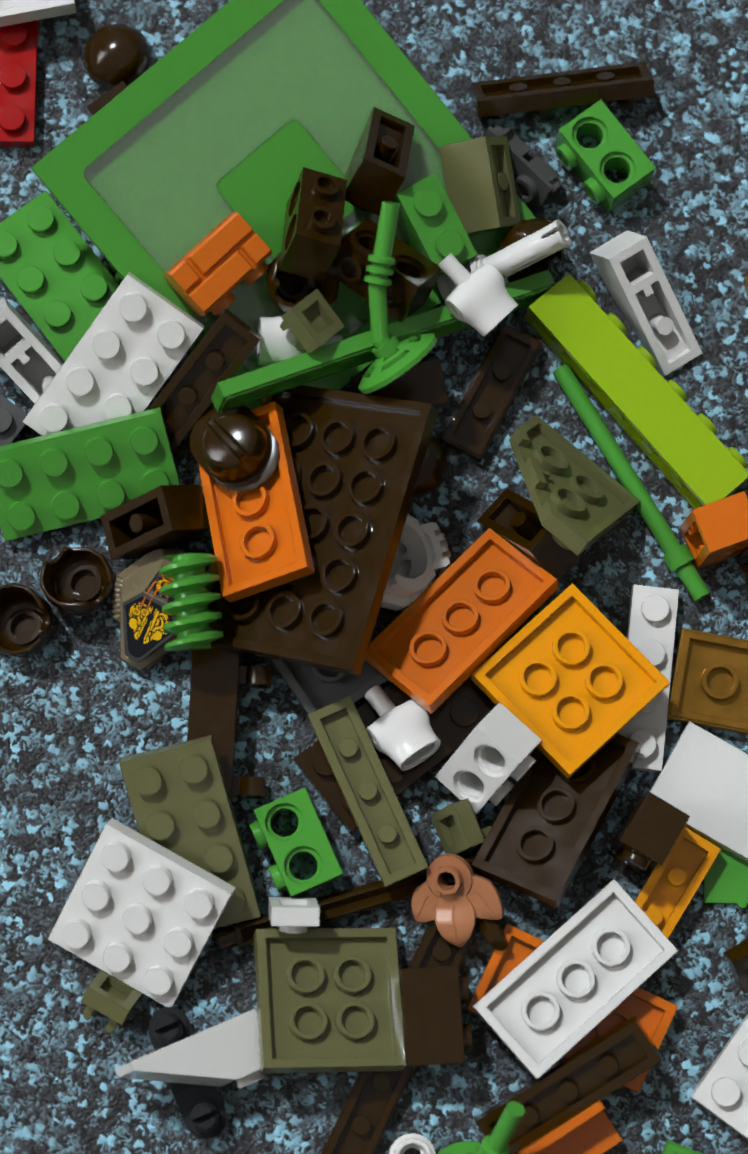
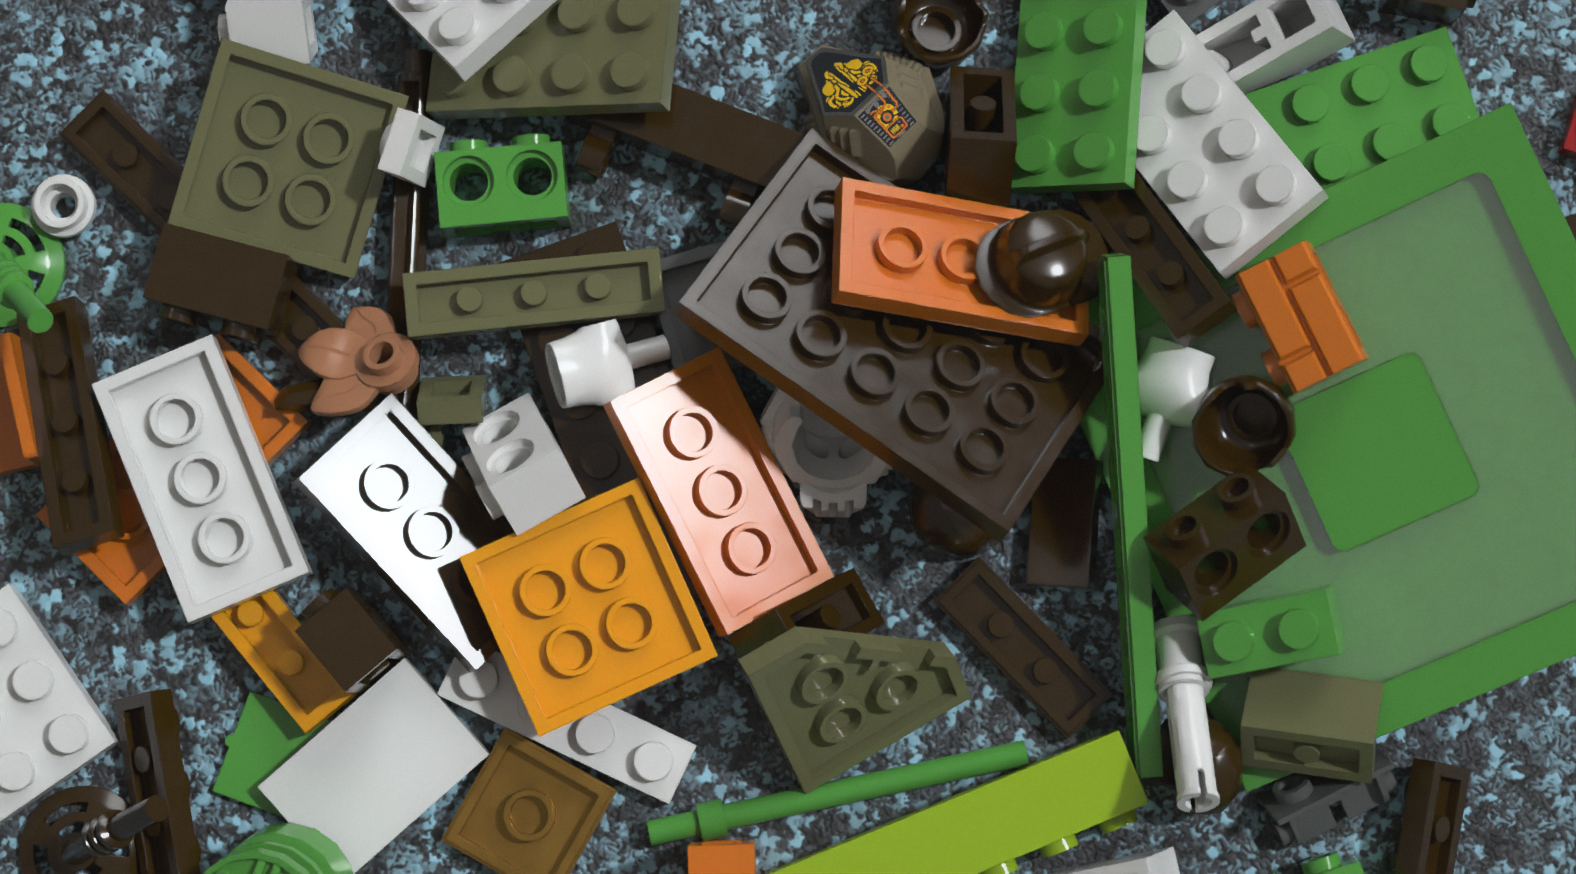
camera: 115 degrees right, 5 degrees up
(190, 602) = (850, 136): bright green piece -> none
(311, 322) = (1178, 414): olive tile -> none
(313, 225) = (1315, 459): dark brown brick -> none
(379, 161) = (1382, 586): dark brown slope -> none
(392, 356) = (1096, 509): bright green dish -> none
(479, 296) = (1146, 658): white piece -> none

